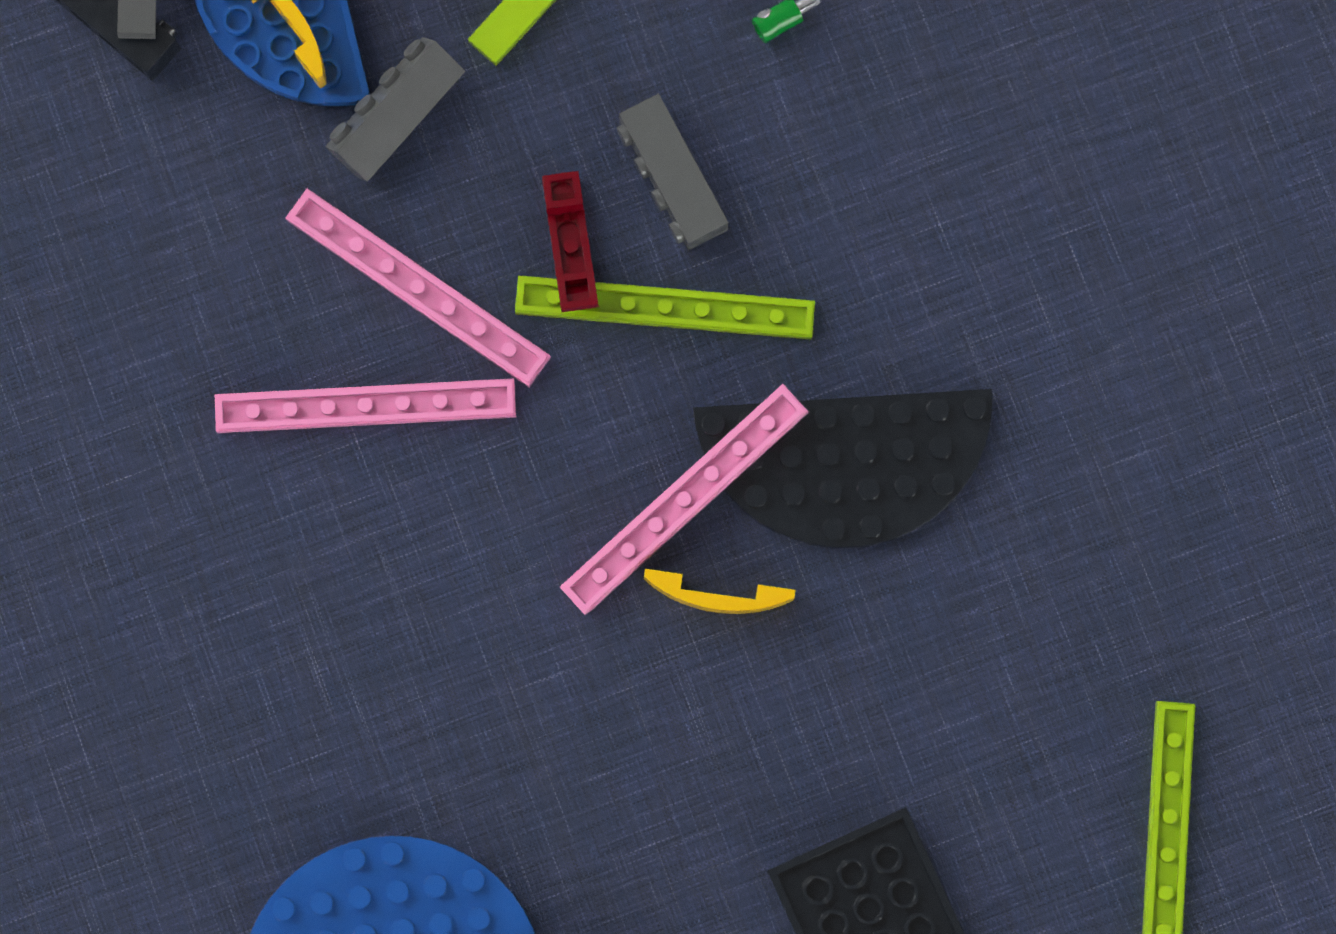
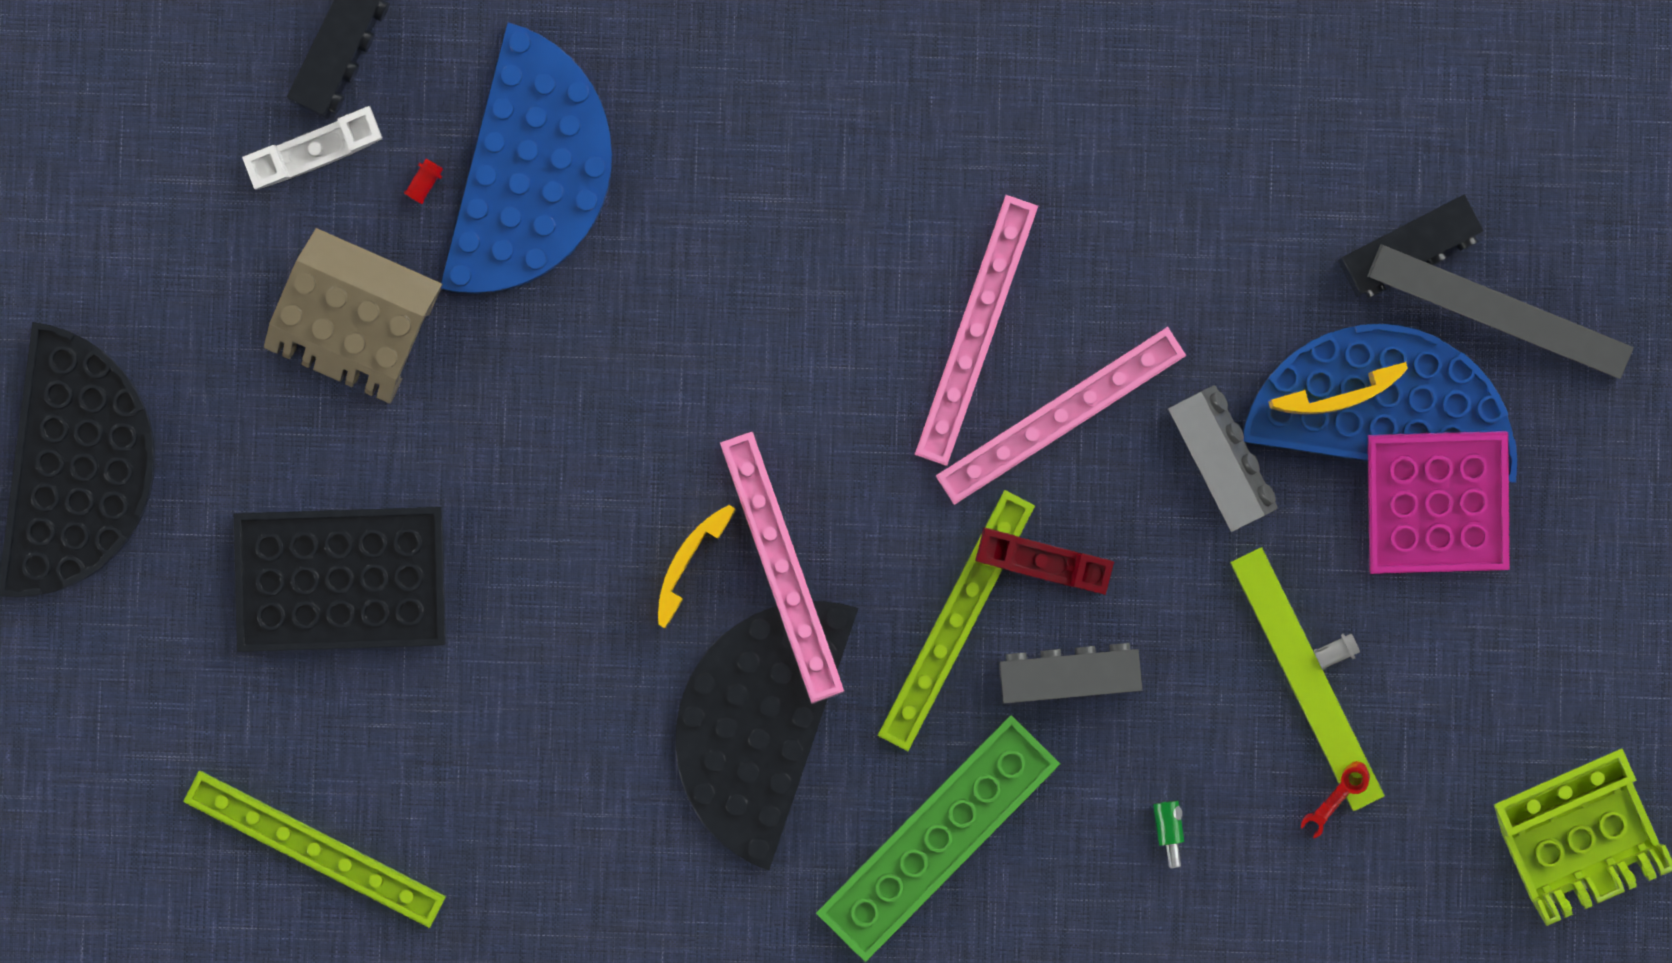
camera: 115 degrees right, 5 degrees up
(888, 236) = (938, 838): none -> bright green plate

